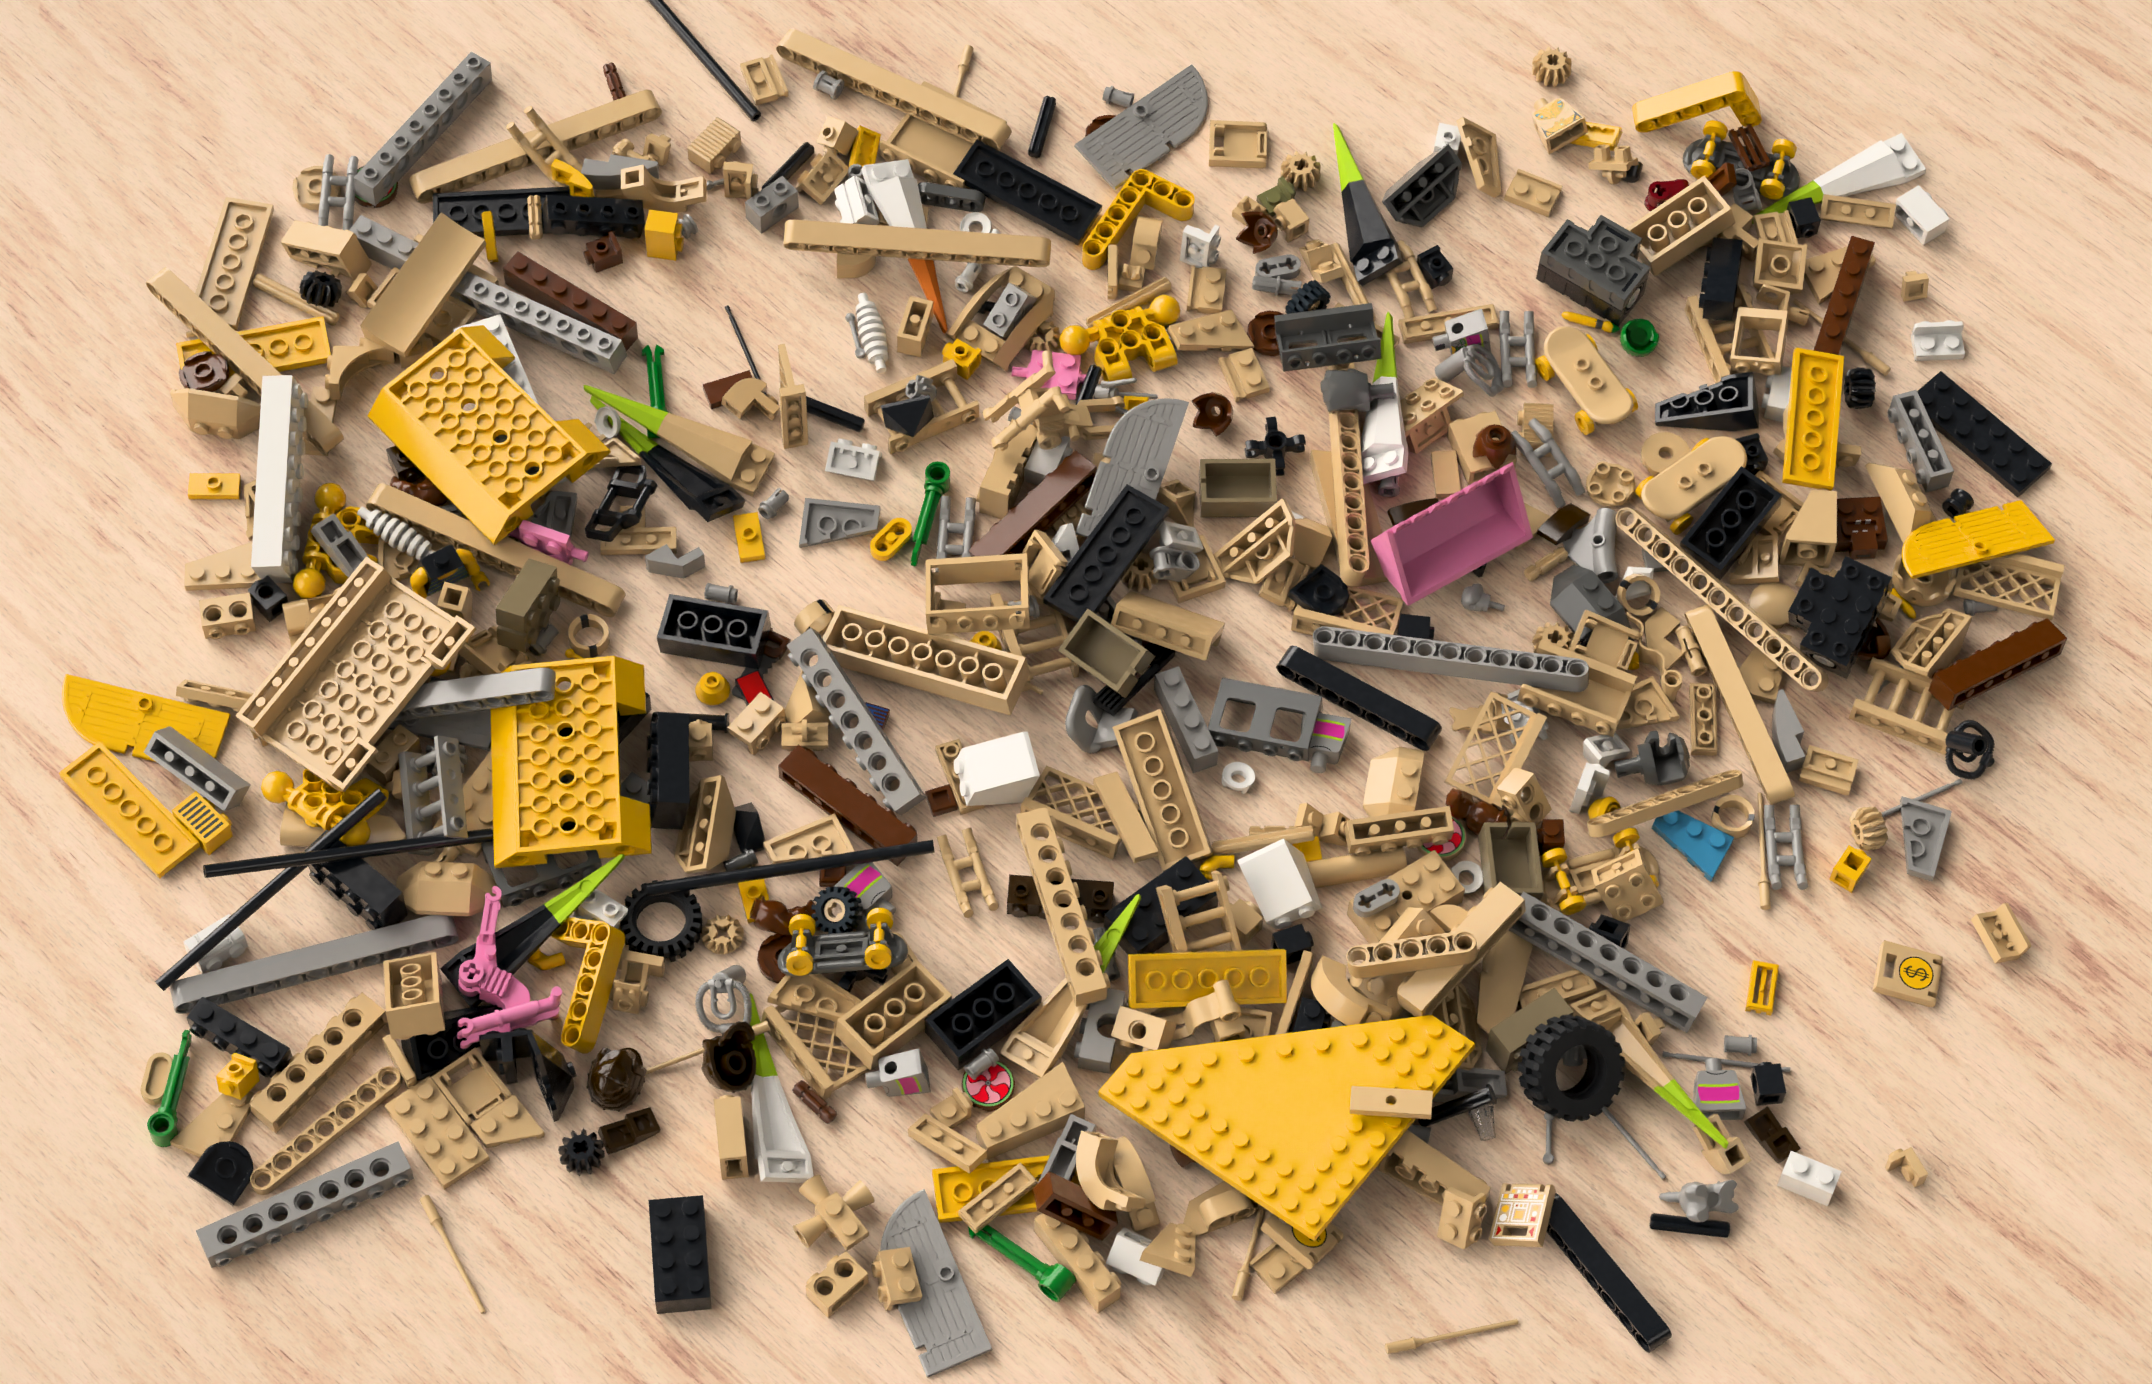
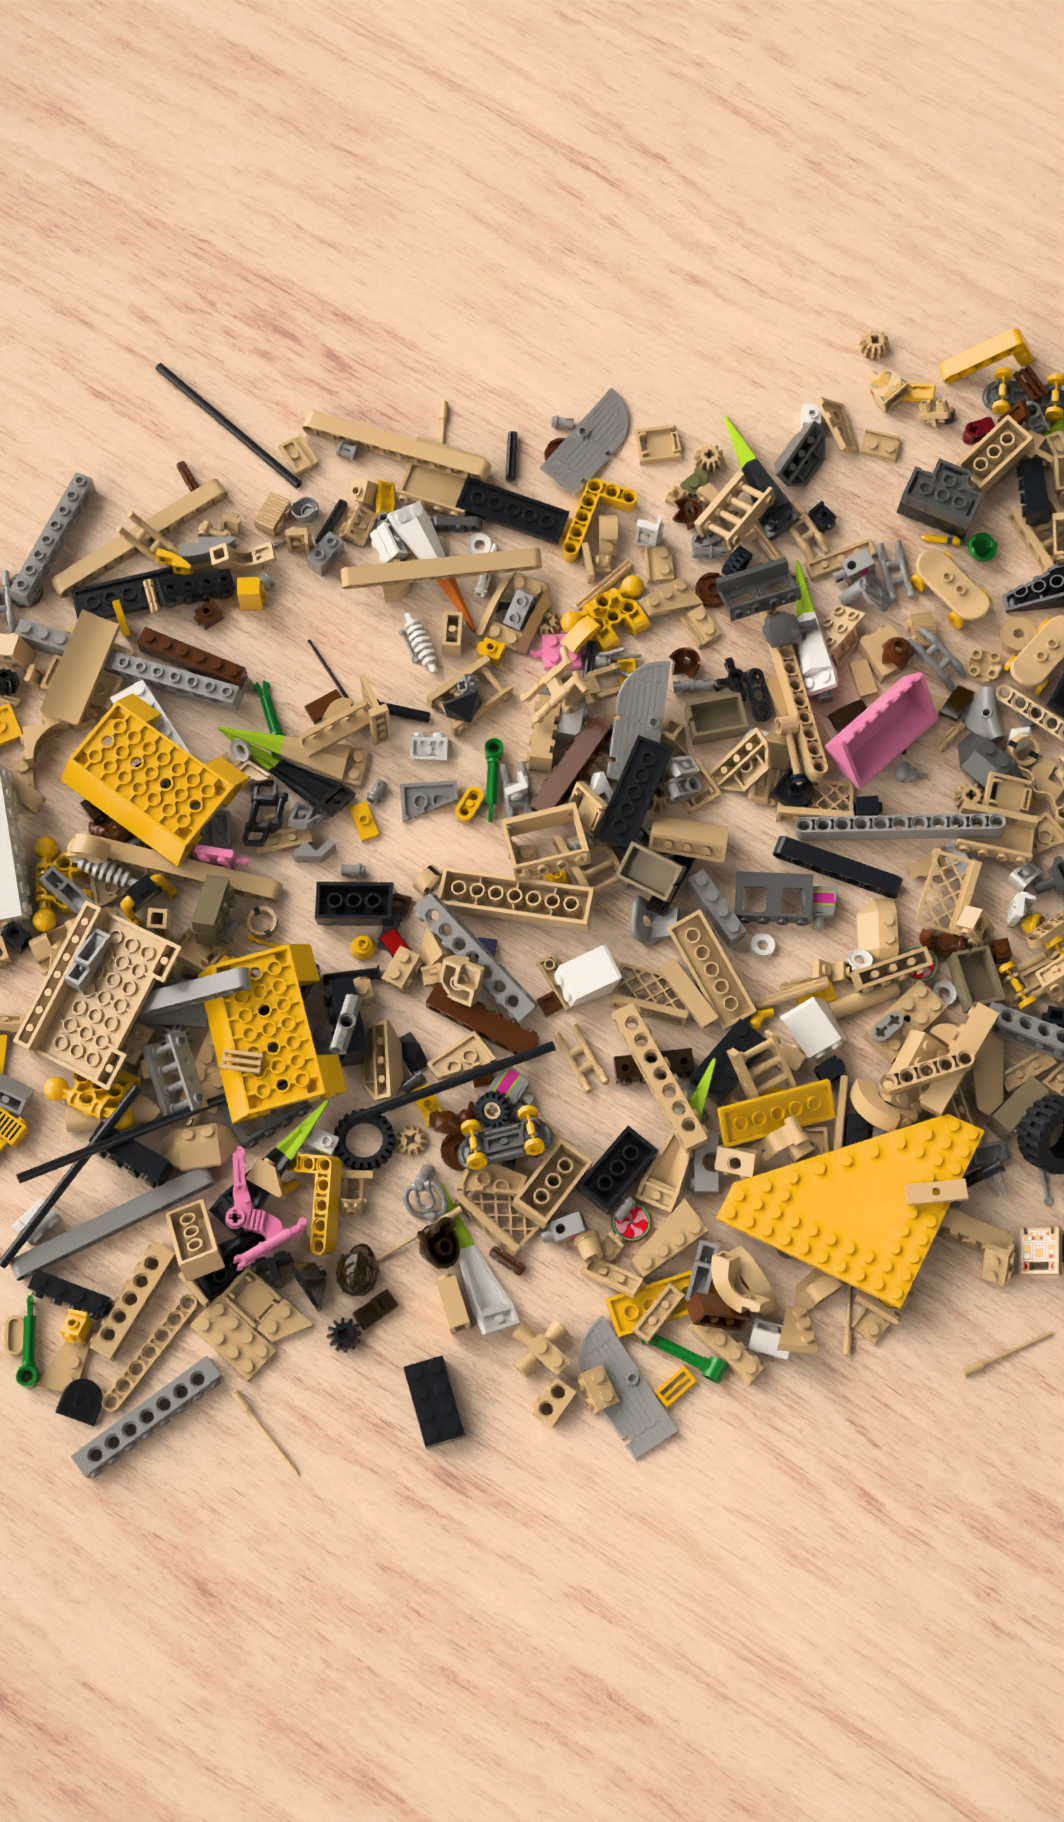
camera: 10 degrees left, 10 degrees up
(352, 631) = (87, 960): none -> light grey slope
(384, 498) = (89, 848): none -> tan brick
(512, 773) = (225, 1059): none -> tan tile
(523, 937) = (267, 1177): none -> tan slope
(660, 774) = (348, 1014): none -> light grey piece
(674, 515) = (305, 816): none -> light grey wing
(736, 413) = (335, 729): none -> tan fence
(758, 147) = (305, 509): none -> light grey hair
(830, 742) = (461, 979): none -> tan brick
(925, 1098) = (589, 1246): none -> tan piece
(956, 530) = (517, 790): none -> white bracket
(981, 1308) = (679, 1383): none -> yellow tile
(1086, 349) = (582, 631): none -> yellow slope
(1215, 444) = (691, 685): none -> light grey pin
(1294, 451) = (755, 709): none -> black beam
(1308, 222) = (727, 497): none -> tan fence
(1327, 511) = (786, 727): none -> tan piece
(1360, 806) = (862, 954): none -> white piece

